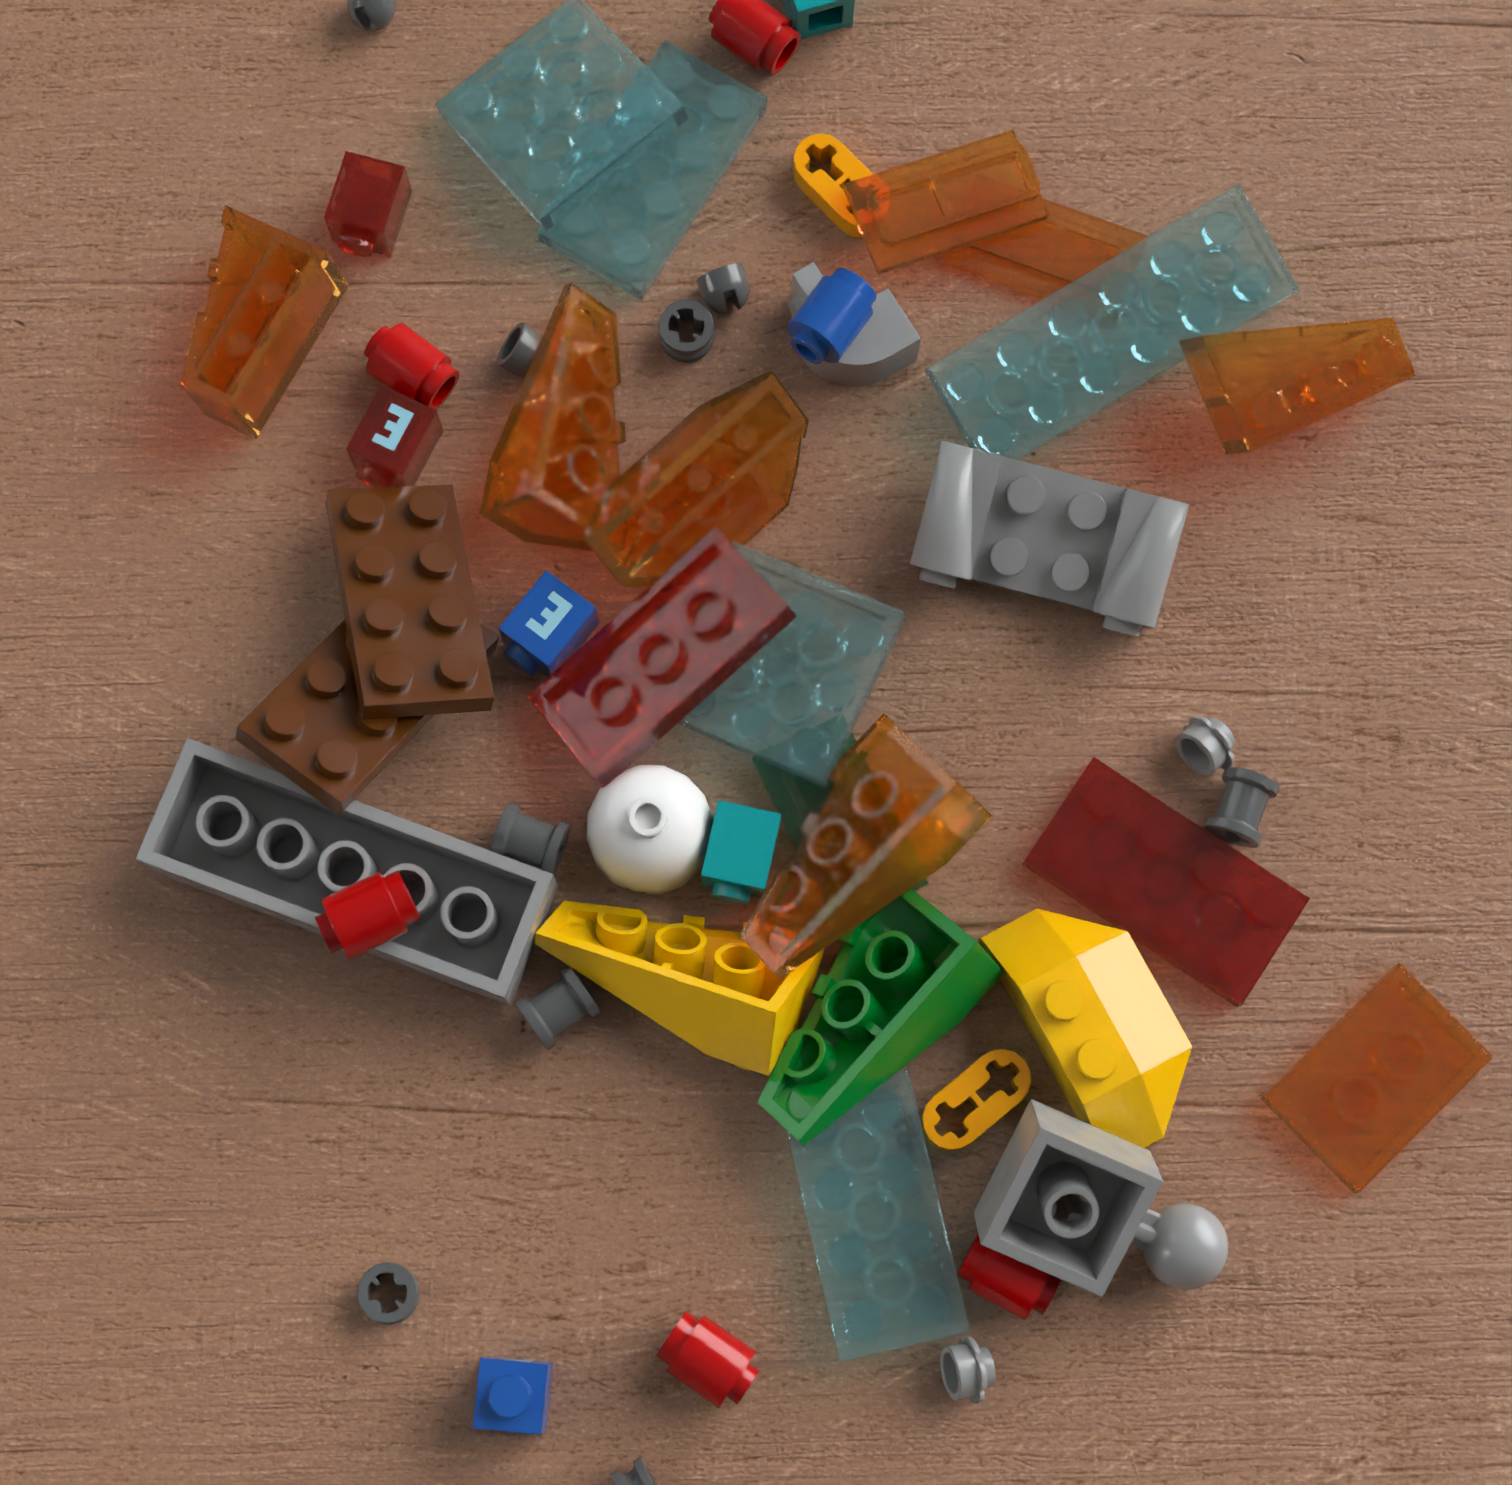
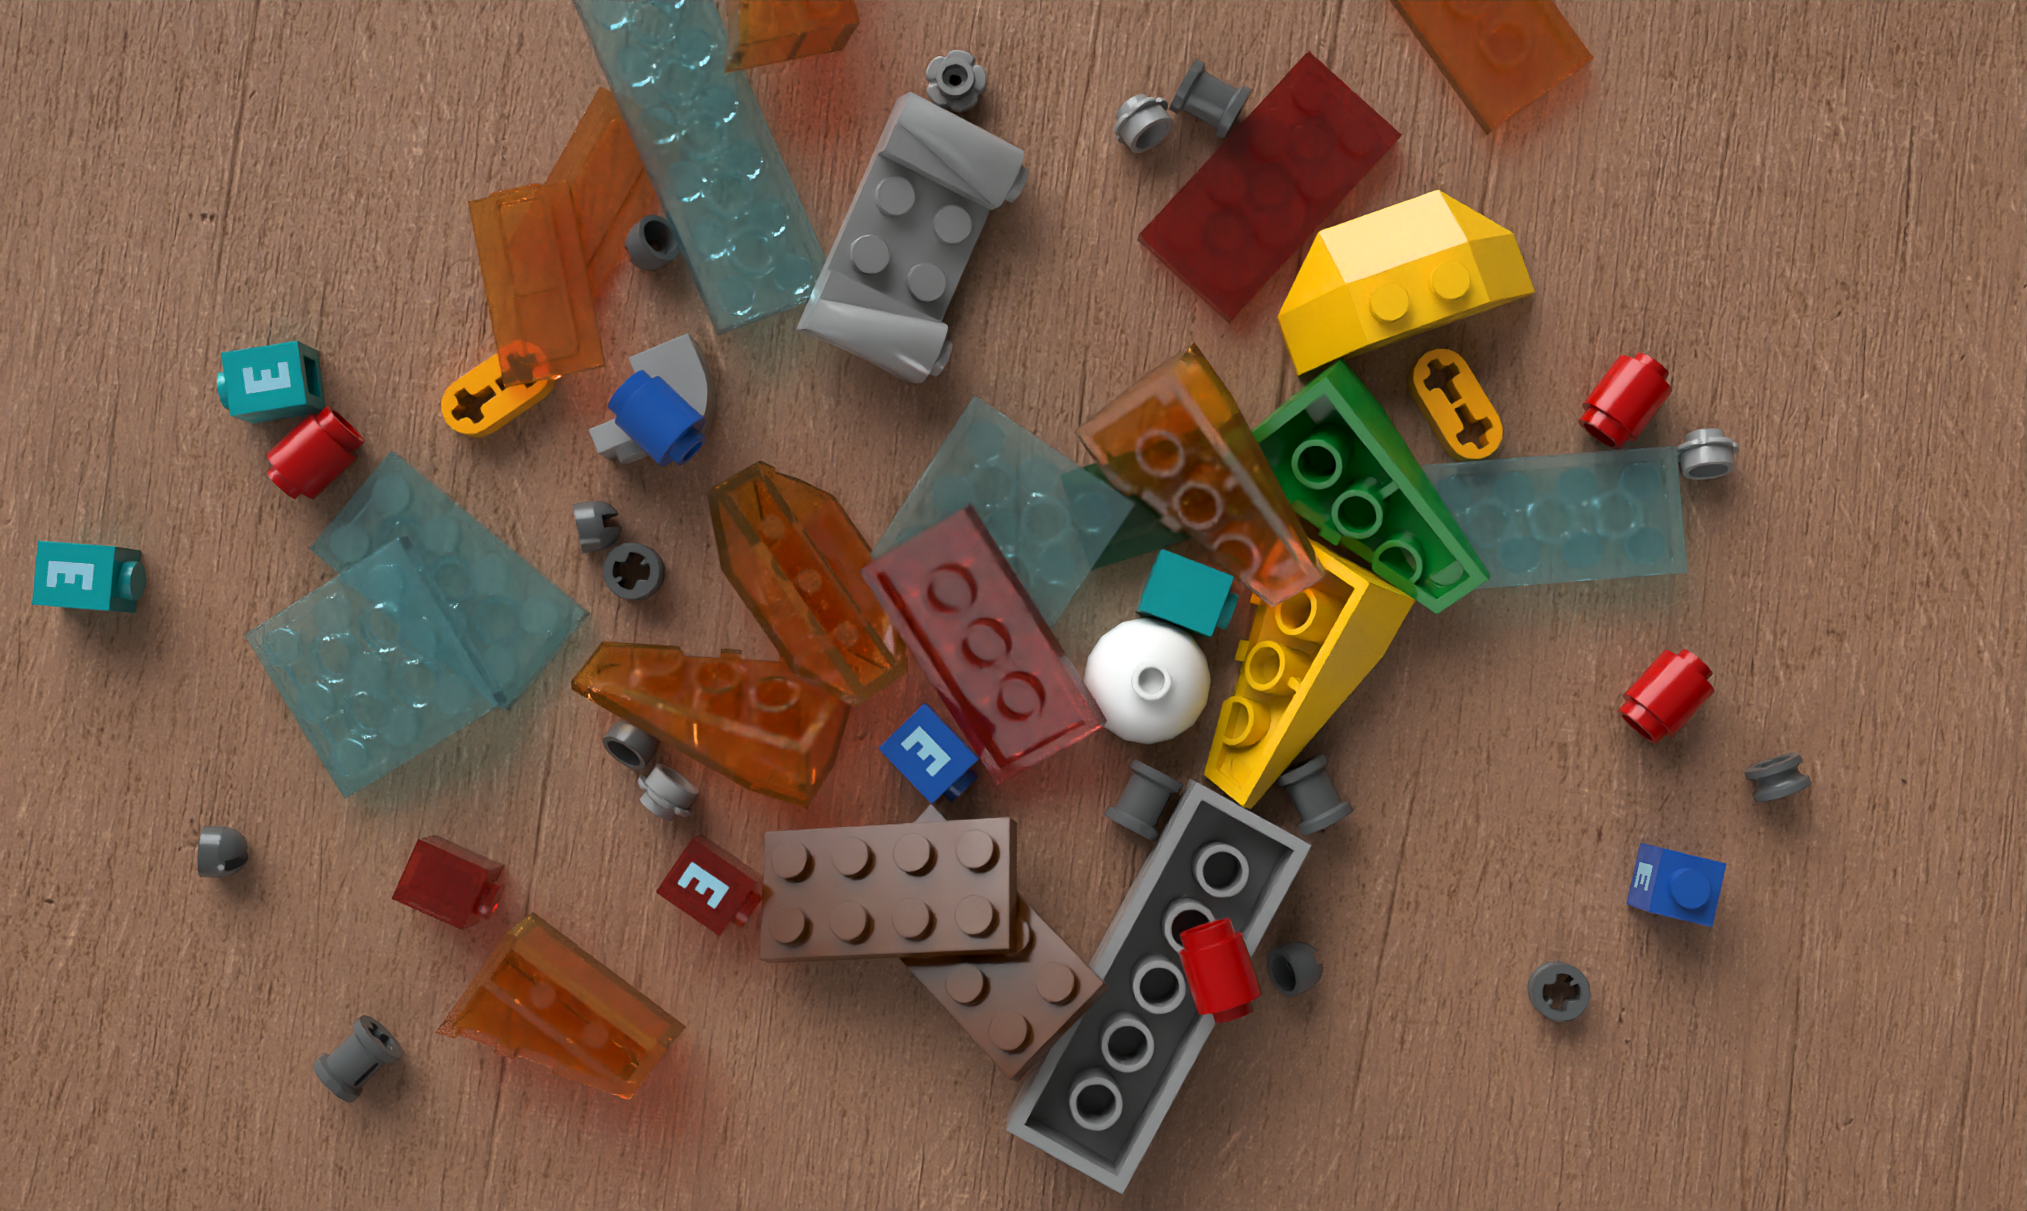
camera: 80 degrees left, 10 degrees up
(192, 149) = (357, 1058): none -> dark grey bush
(379, 1015) = (1294, 968): none -> dark grey hinge
(410, 365) = (633, 859): red brick -> none
(478, 390) = (667, 792): none -> light grey plate
(1010, 292) = (647, 232): none -> dark grey hinge
(1101, 1209) = (1574, 318): light grey brick -> none
(1211, 576) = (960, 97): none -> light grey plate

